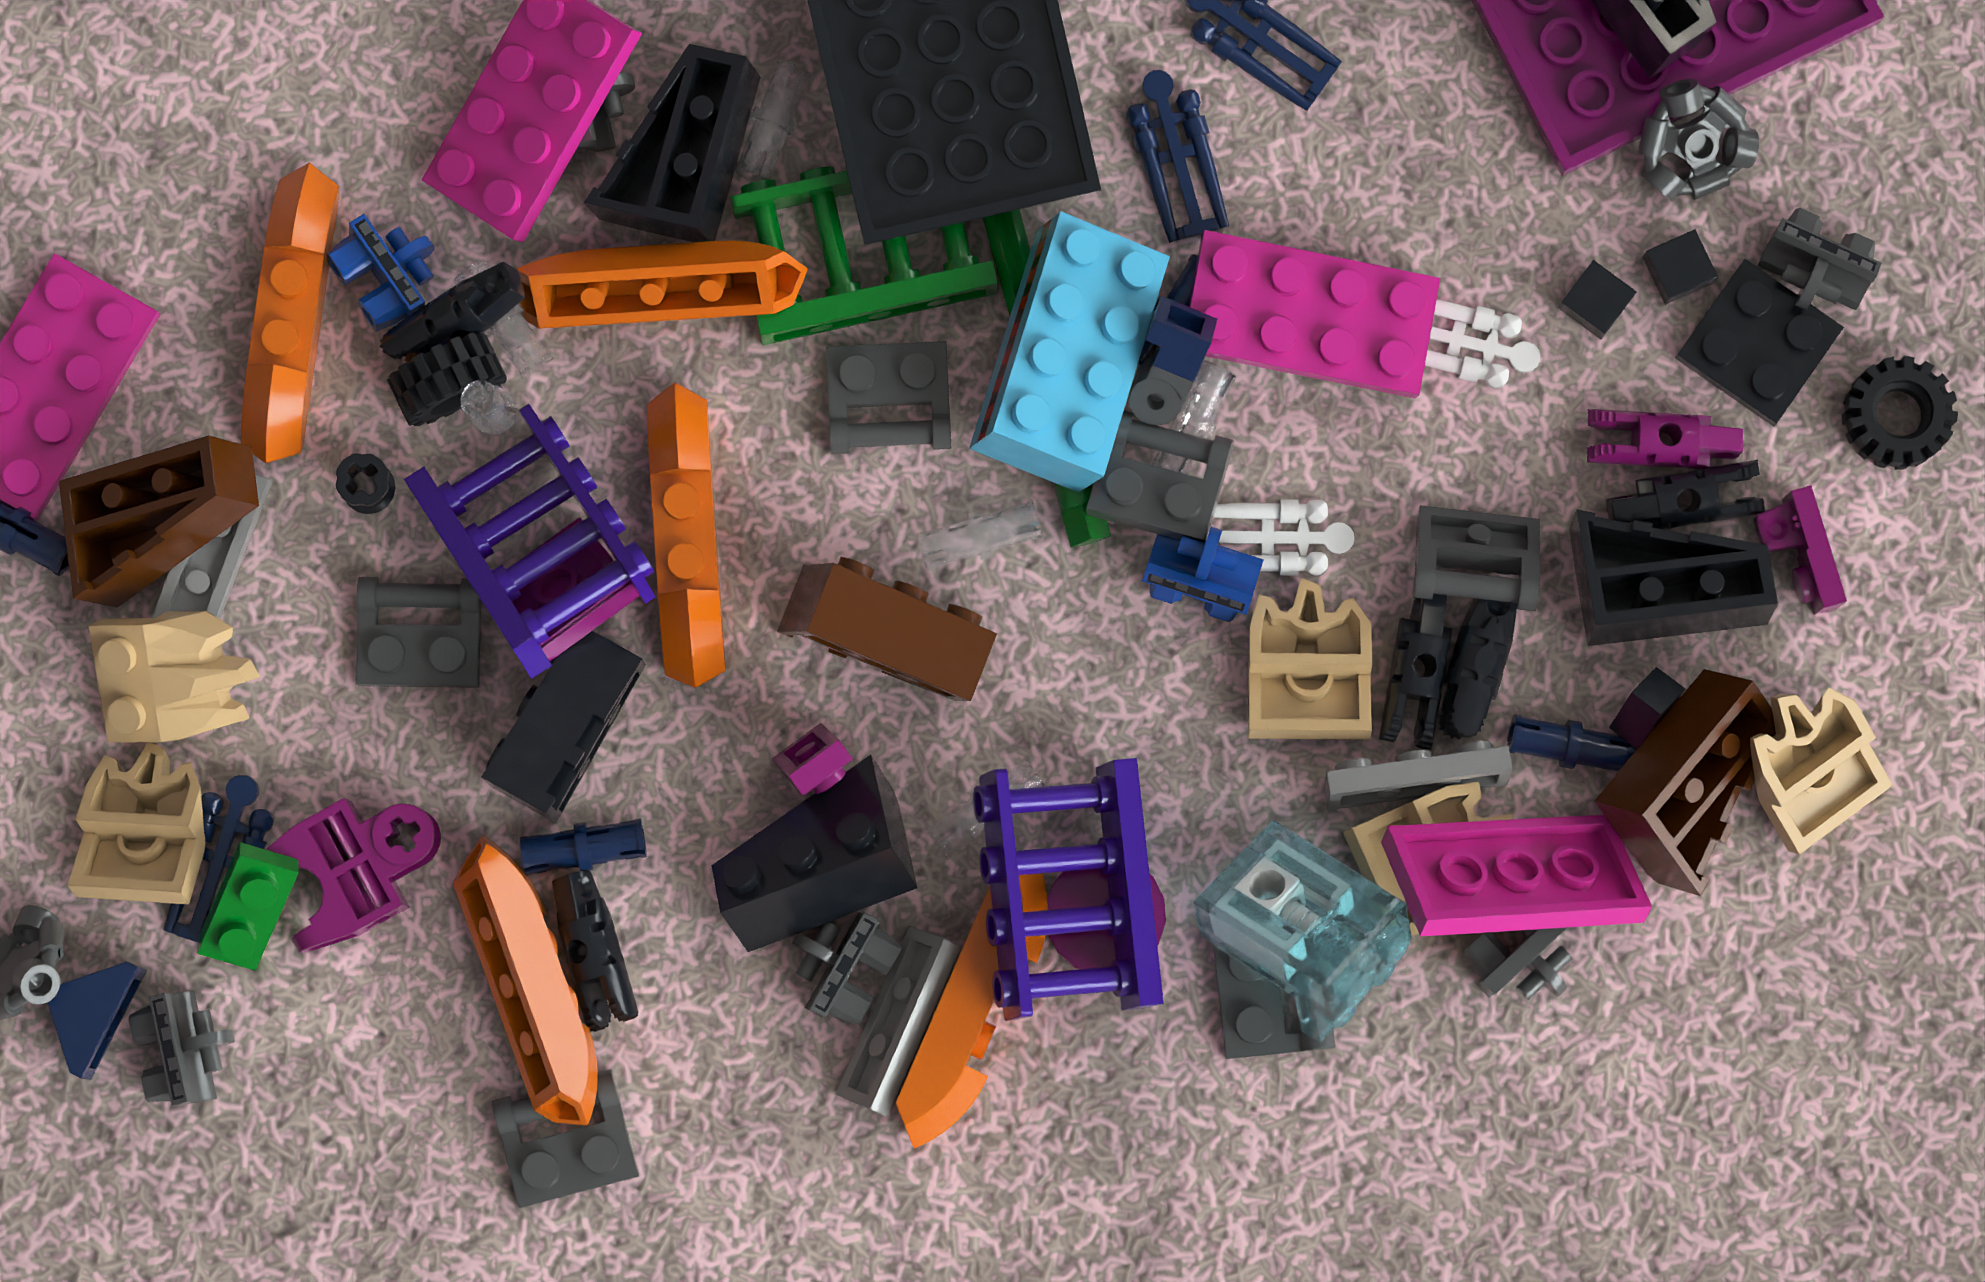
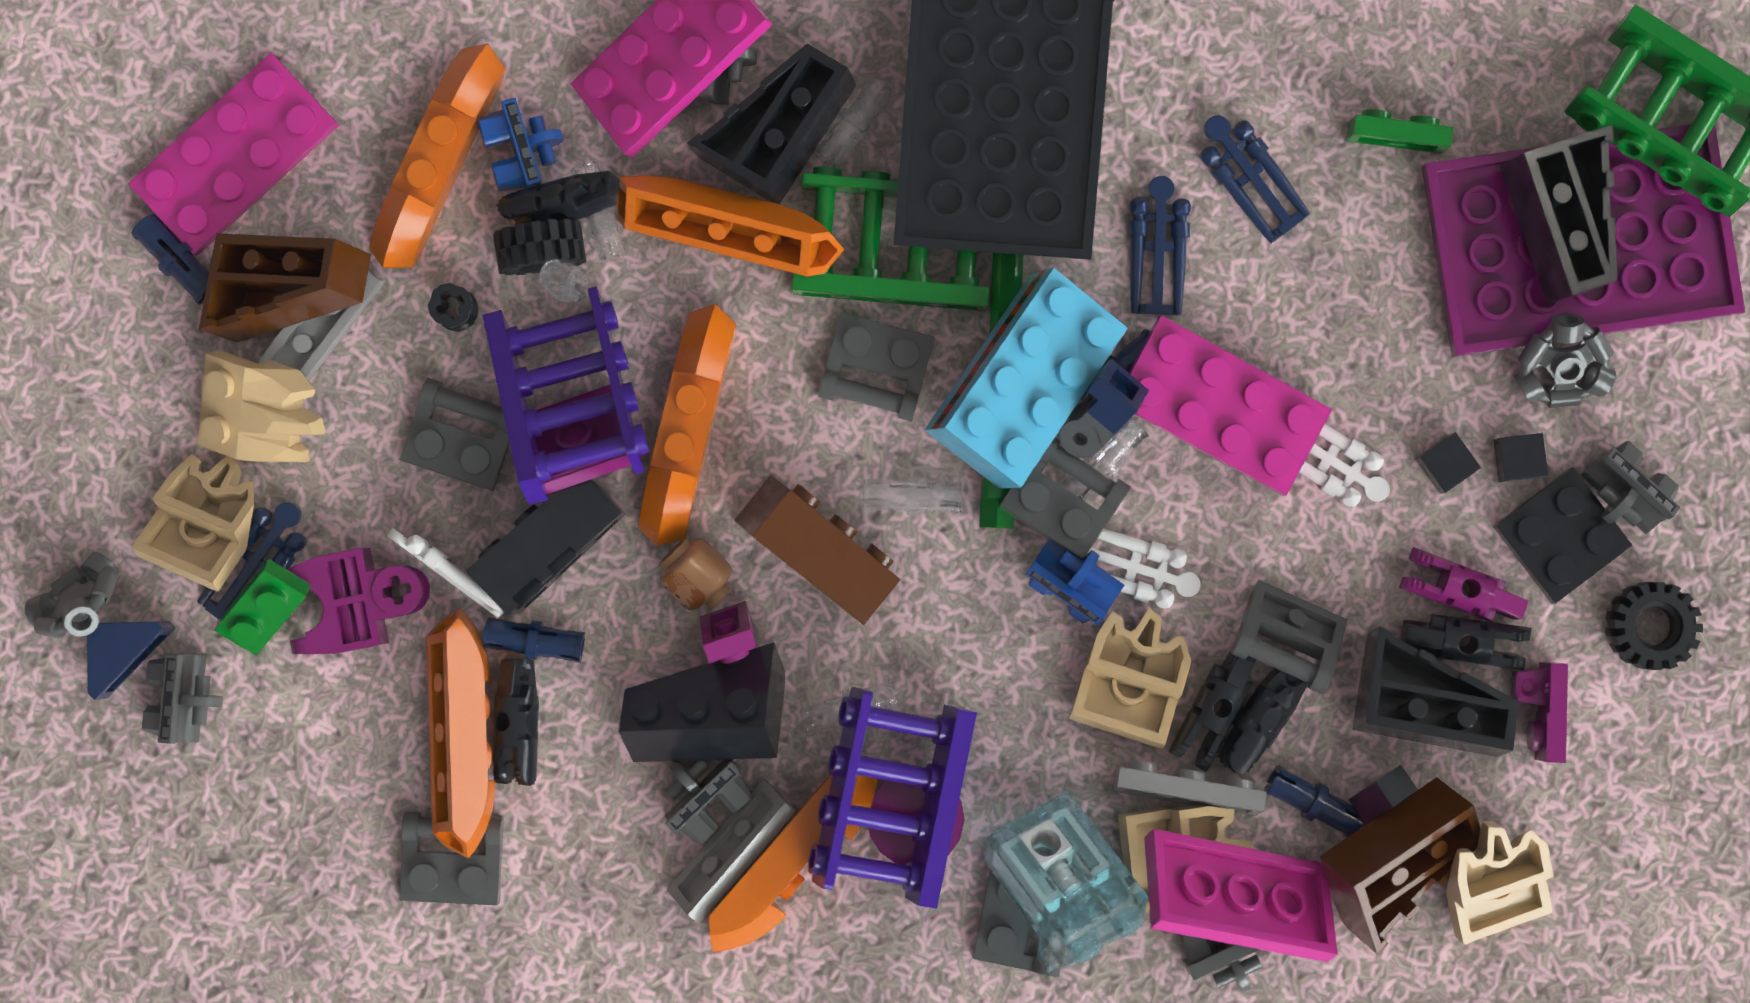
camera: 20 degrees right, 5 degrees up
(439, 789) = (438, 562): none -> white piece
(752, 706) = (695, 574): none -> medium nougat head

